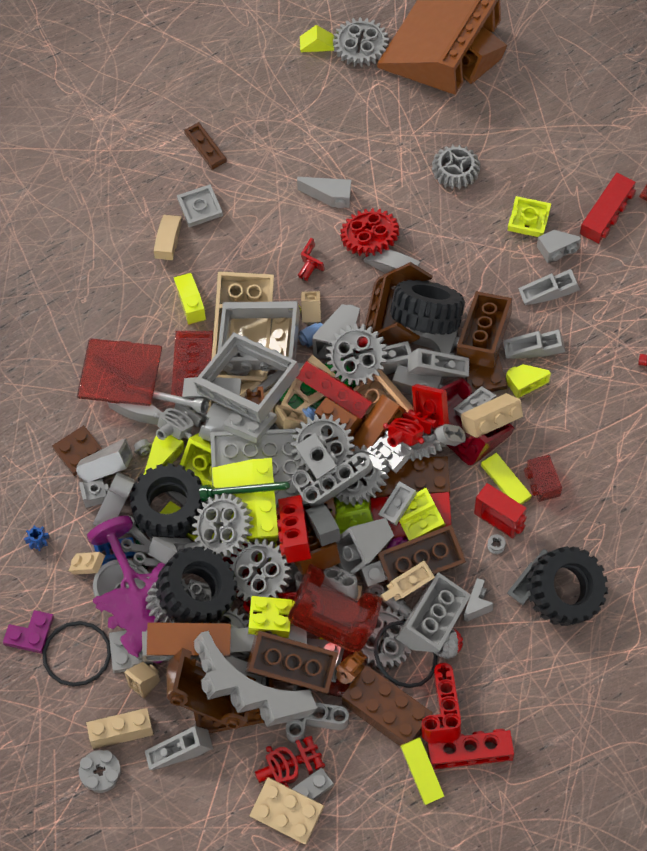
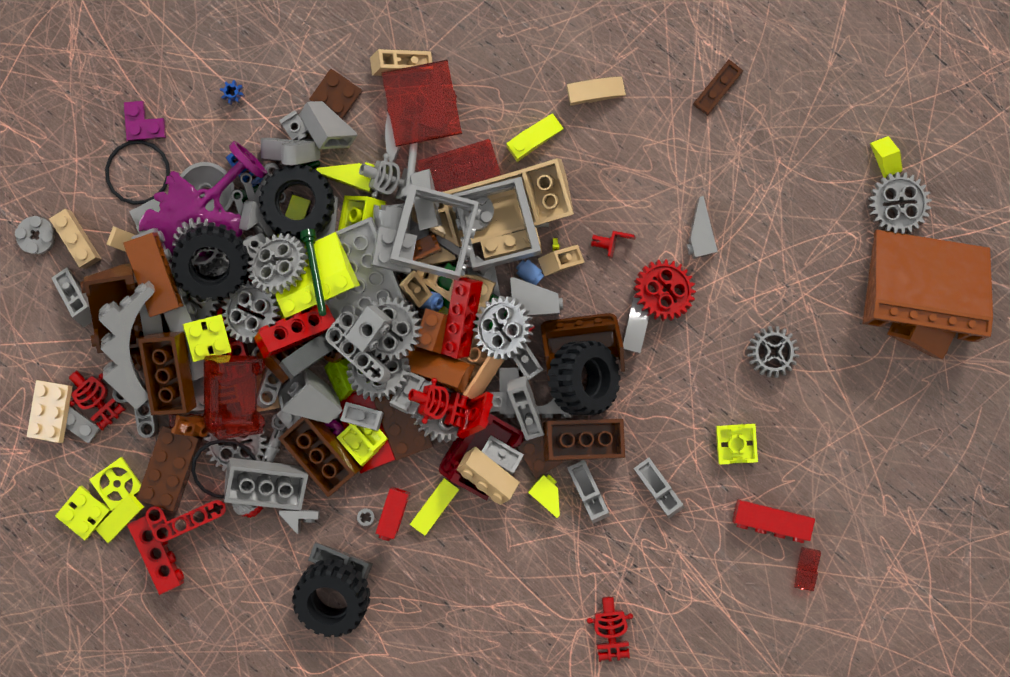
camera: 70 degrees right, 25 degrees up
(68, 387) = (390, 60): none -> tan slope
(86, 563) = (218, 148): tan plate -> none
(142, 447) = (356, 154): light grey plate -> none
(199, 205) = (642, 108): light grey plate -> none
(375, 773) = (95, 480): none -> neon yellow piece
(405, 814) = (87, 509): none -> neon yellow brick
(408, 582) = (285, 451): tan hinge -> none
(450, 435) = (446, 446): light grey beam -> none
(543, 478) = (445, 542): clear red brick -> none
(557, 244) = (711, 480): light grey slope -> none

